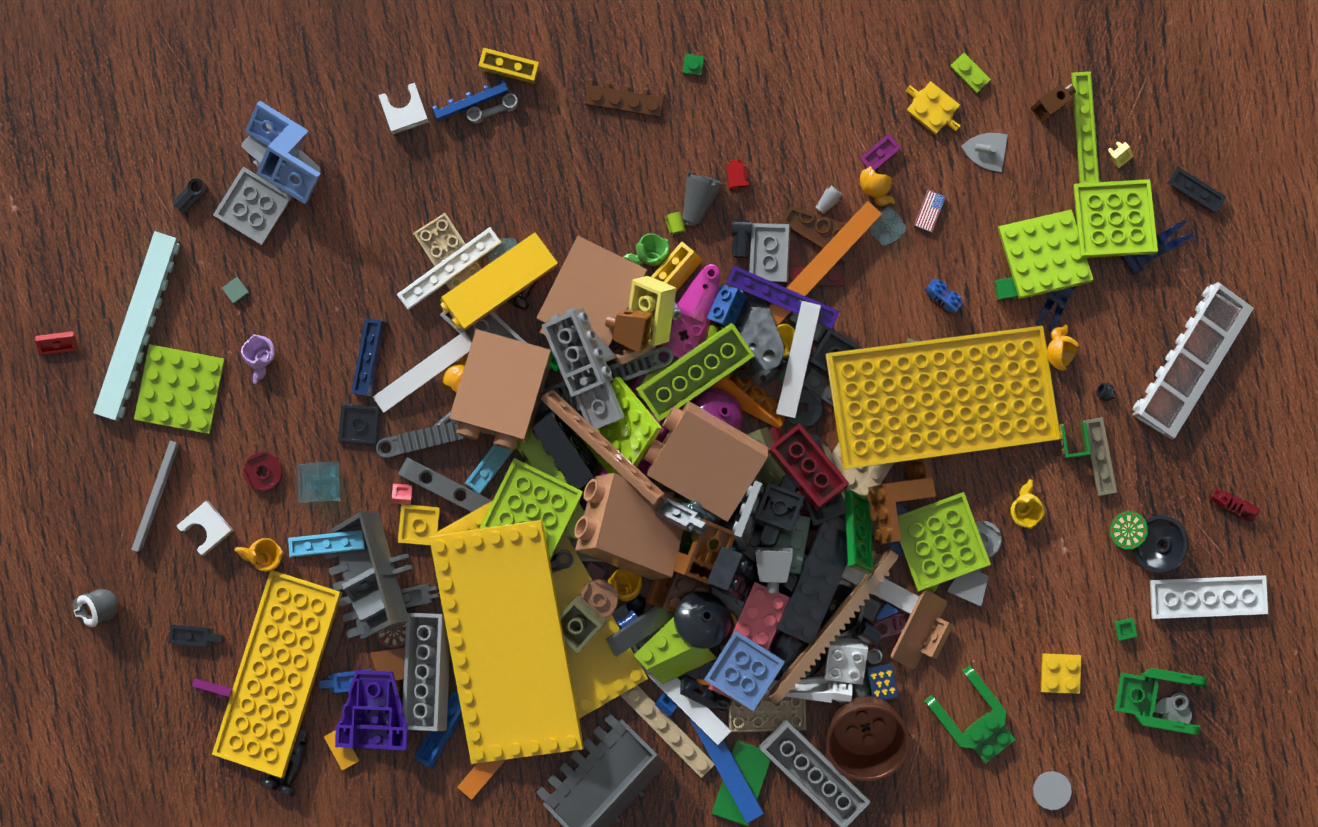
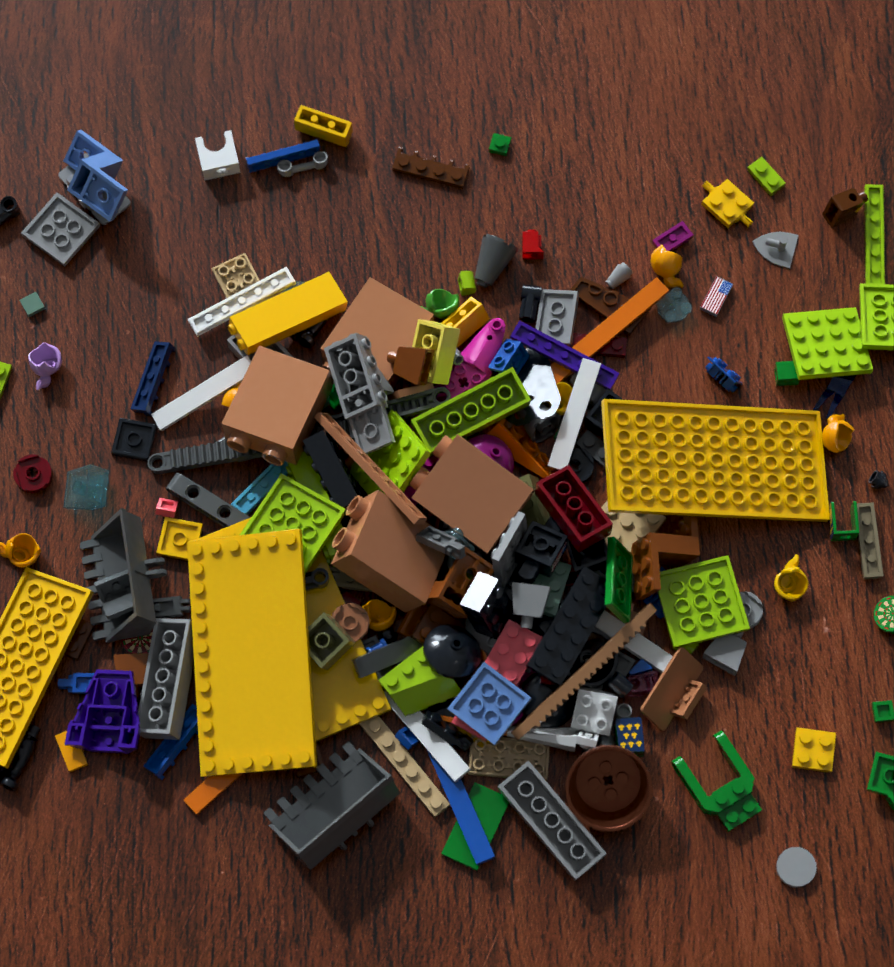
camera: 10 degrees right, 15 degrees down
(326, 543) = (85, 547): medium azure tile -> none

